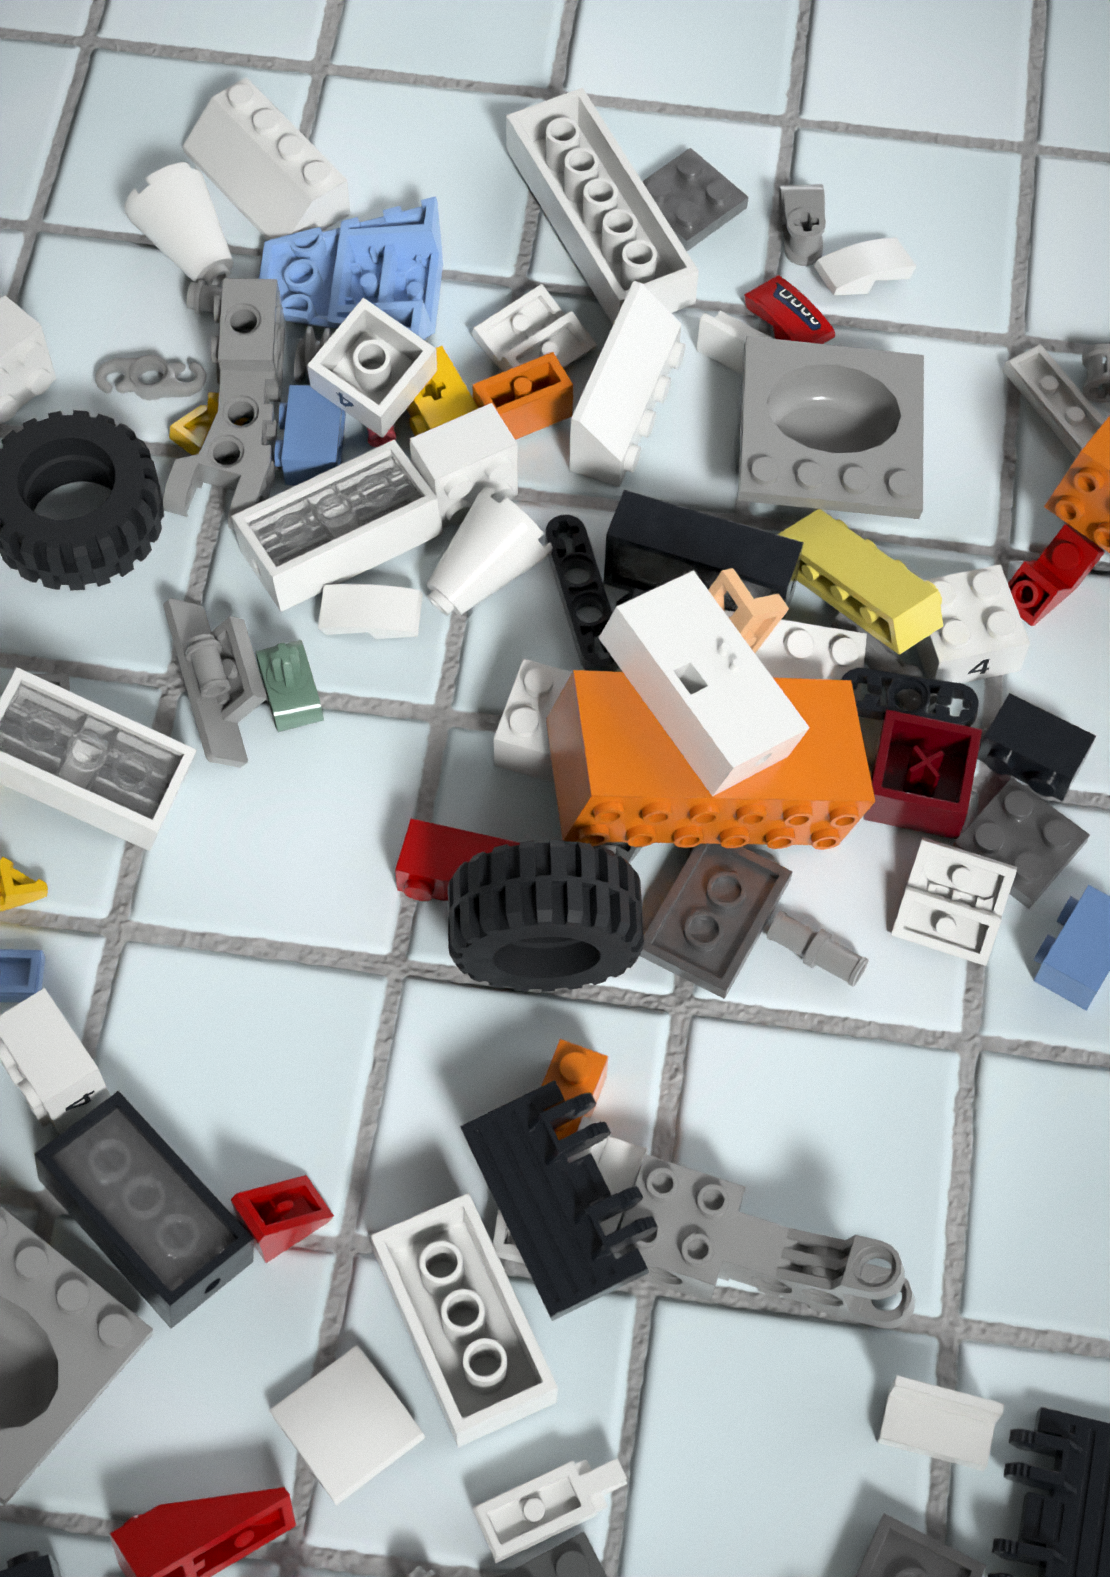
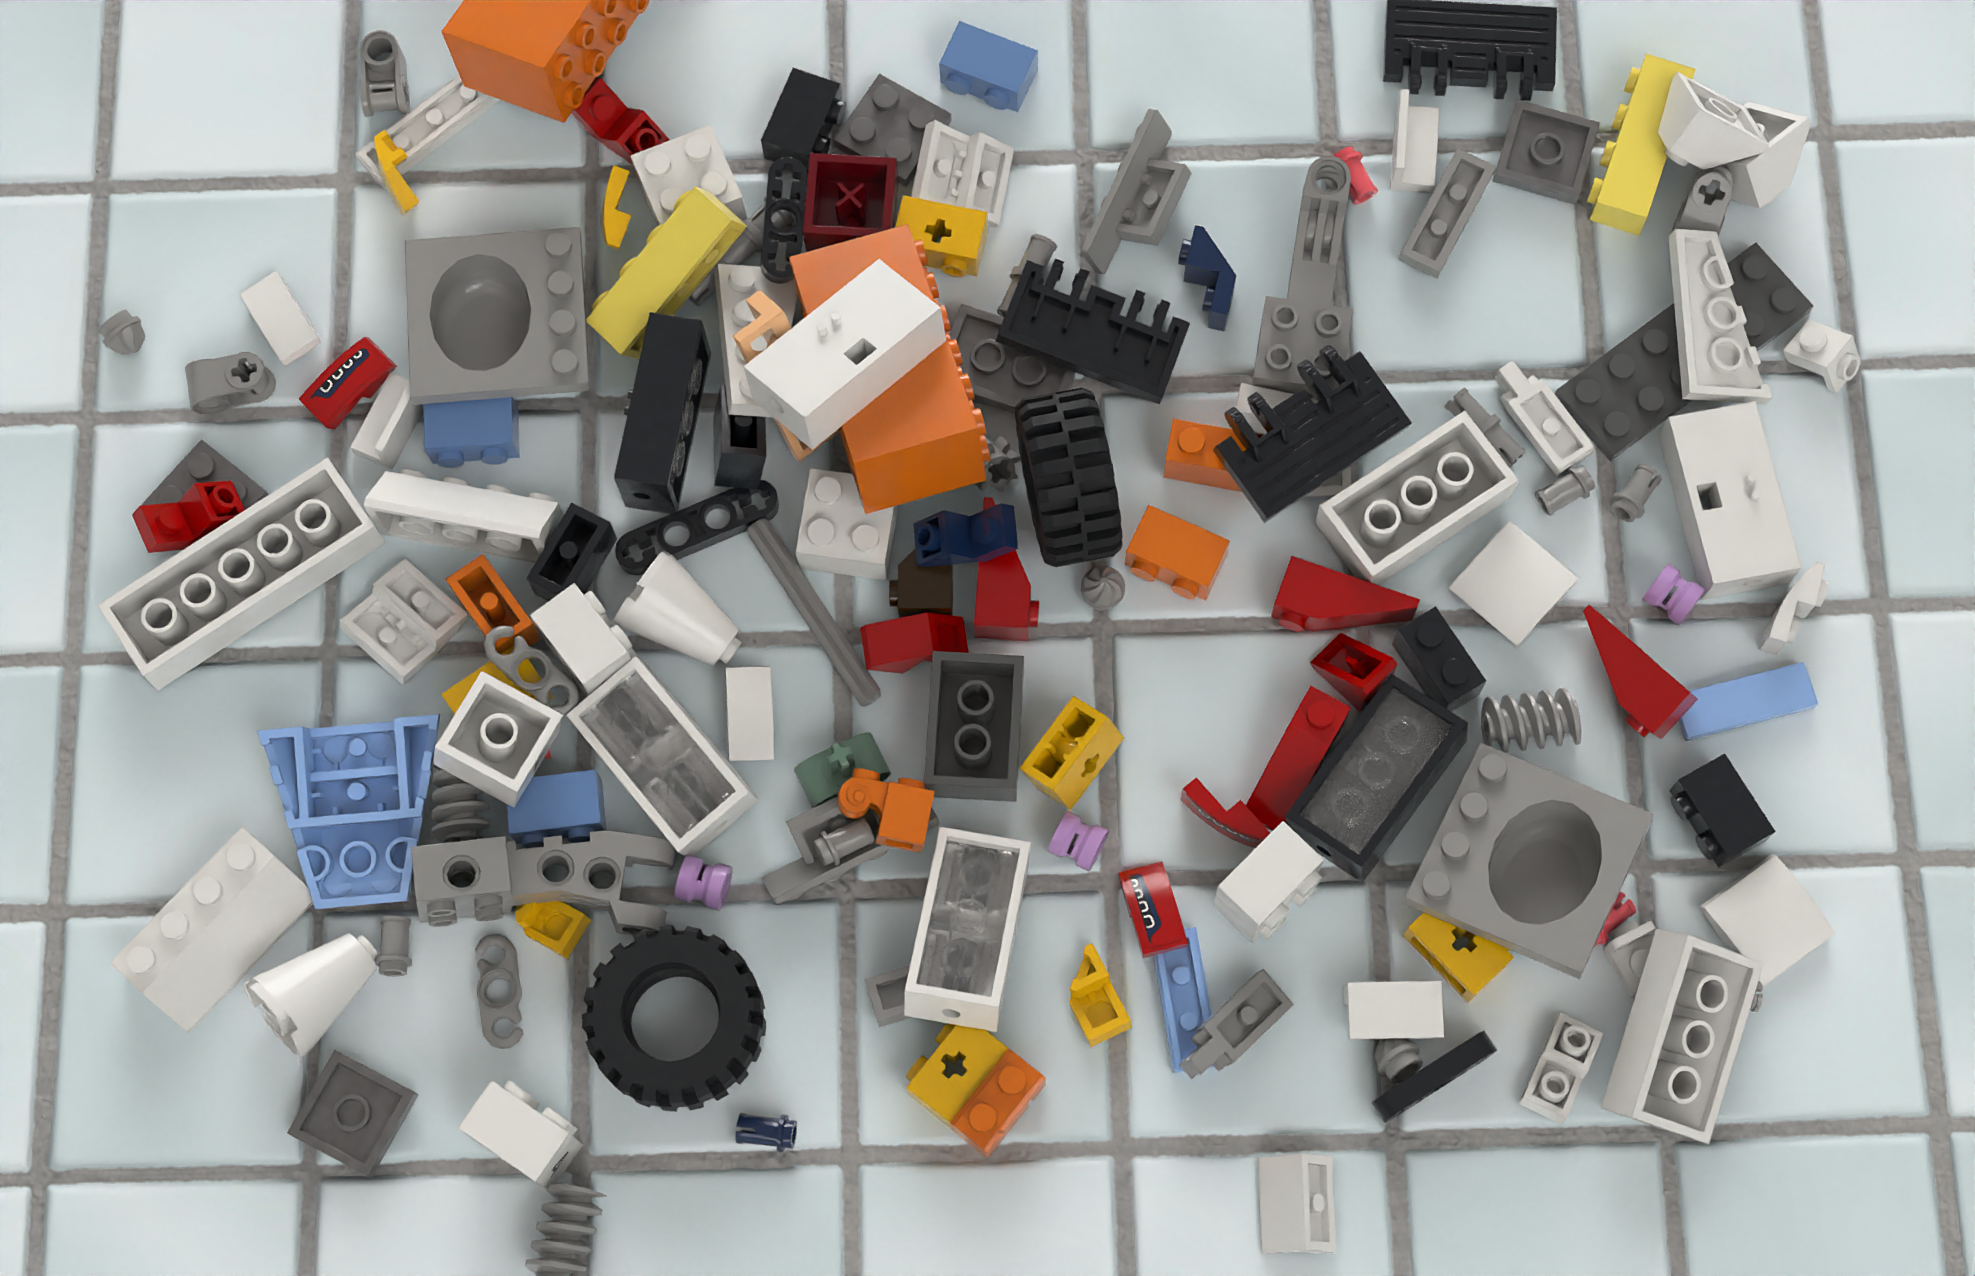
camera: 95 degrees left, 10 degrees up
(67, 953) = (1153, 909): none -> red slope
(68, 254) = (352, 1113): none -> flat silver plate
(133, 1055) = (1236, 823): none -> red slope
(158, 893) = (1087, 845): none -> lavender wheel
(167, 1402) = (1530, 719): none -> light grey piece
(199, 1135) = (1297, 756): none -> red slope
(204, 551) = (703, 882): none -> lavender wheel
(221, 711) = (901, 807): none -> orange brick
(249, 895) = (1071, 752): none -> yellow brick
(265, 1308) = (1438, 660): none -> black brick
(301, 806) = (974, 726): none -> dark grey brick
(372, 1193) = (1330, 600): none -> red slope
(411, 770) = (909, 640): none -> red slope
(435, 969) = (1103, 587): none -> light grey plate
(451, 394) = (509, 666): none -> light grey piece
(452, 1514) = (1565, 490): none -> light grey pin
(457, 1047) = (1176, 553): none -> orange brick
(462, 688) = (814, 612): none -> light grey axle
(480, 794) = (922, 588): none -> dark brown slope
(505, 808) = (962, 539): none -> dark blue slope
(548, 1431) = (1488, 425): none -> light grey pin
(563, 471) = (572, 553): none -> black brick
(660, 168) = (193, 517): none -> red slope
(717, 410) = (471, 431): none -> medium blue brick
(736, 991) = (1091, 333): none -> black hinge
(814, 1139) = (1209, 268): none -> dark blue slope
(841, 1446) = (1447, 213): none -> light grey plate
(867, 145) = (123, 333): none -> light grey plate
(873, 889) = (961, 231): none -> yellow brick
(906, 1083) = (1140, 196): none -> light grey bracket
(906, 1341) = (1360, 184): none -> coral pin
(946, 551) = (614, 222): none -> yellow slope
(1003, 362) = (388, 159): none -> yellow slope

